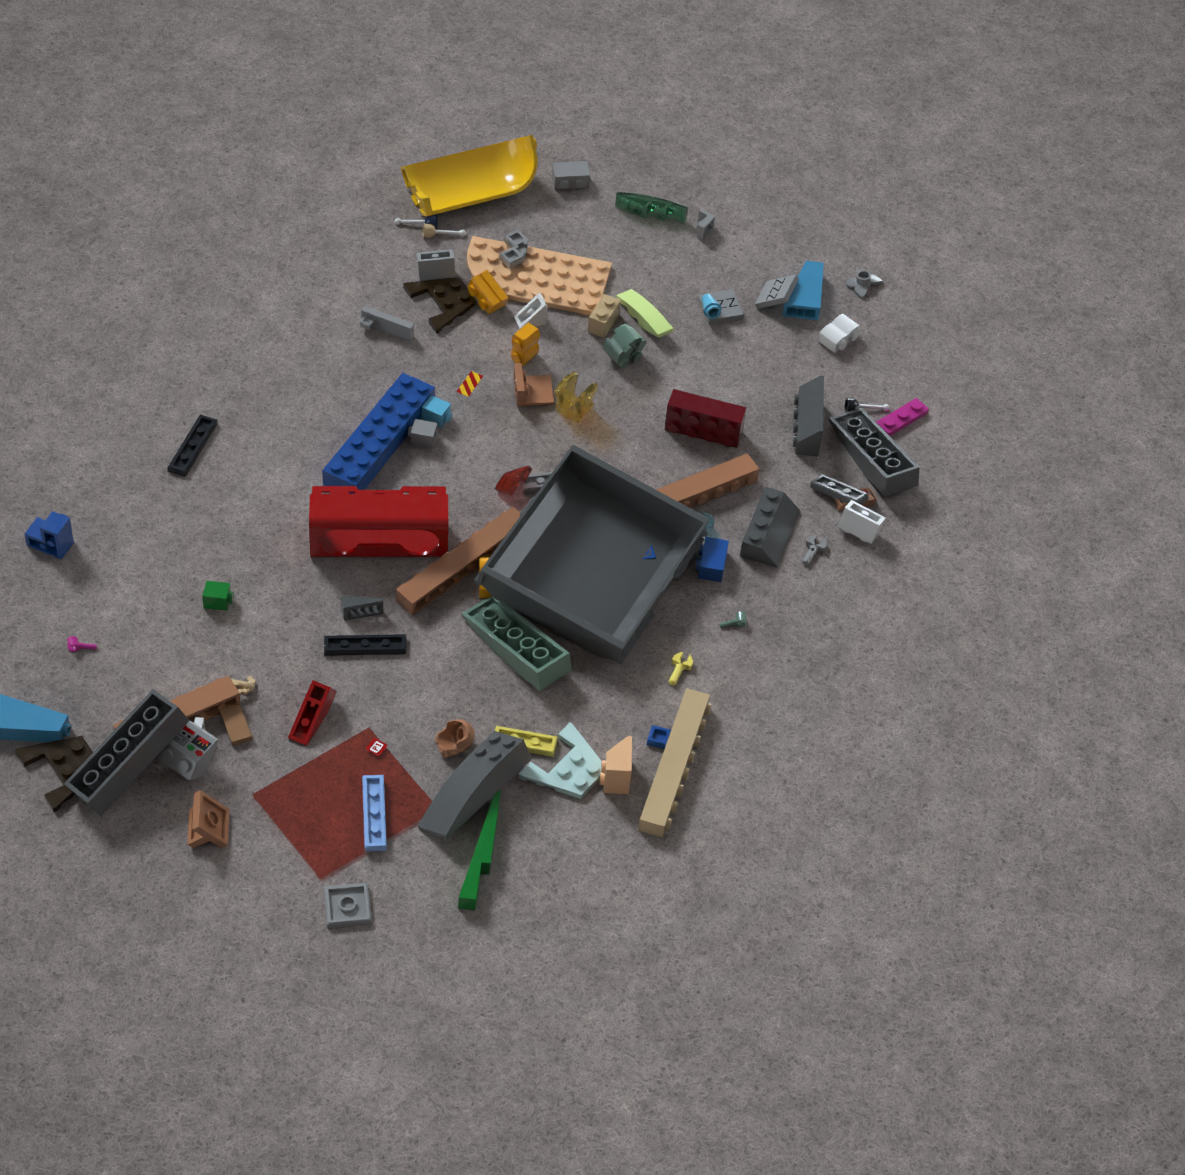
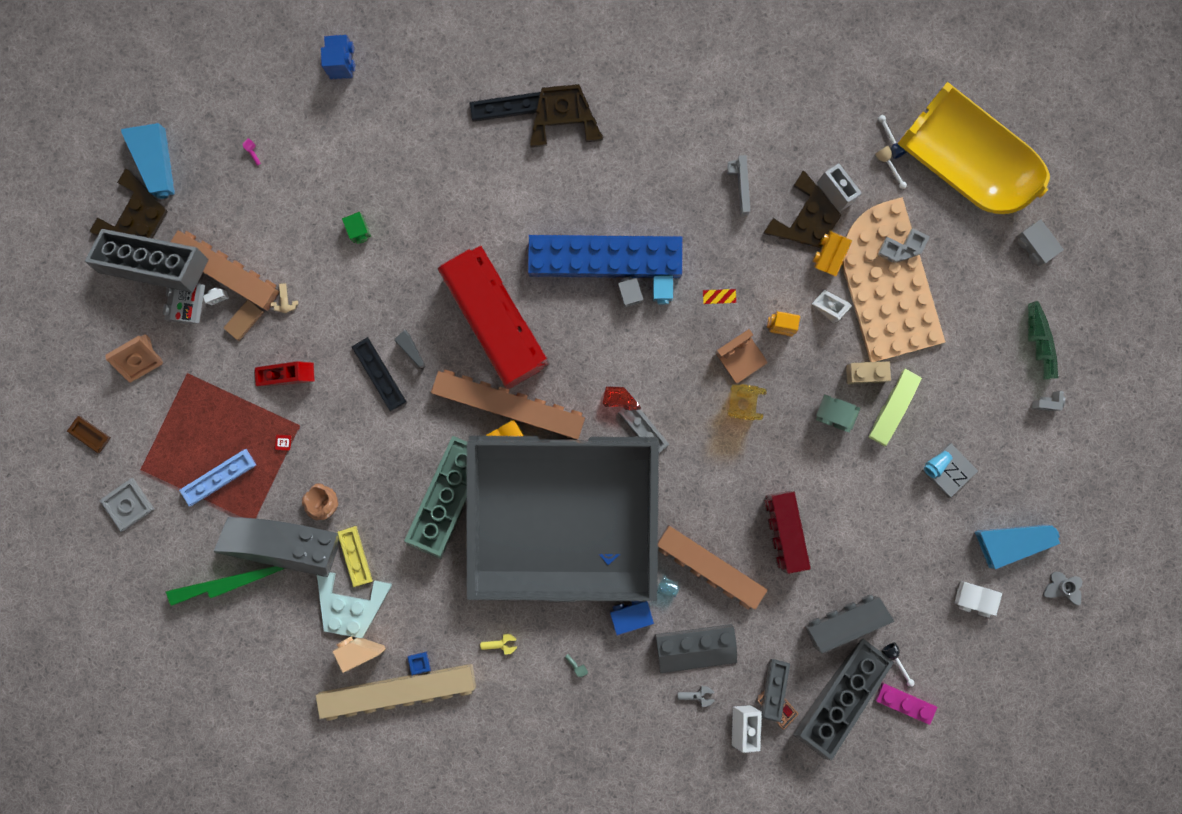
camera: 70 degrees right, 35 degrees up
(225, 406) = (563, 106): none -> dark brown wing
(253, 905) = (88, 434): none -> reddish brown tile
(776, 291) = (996, 516): light grey tile -> none

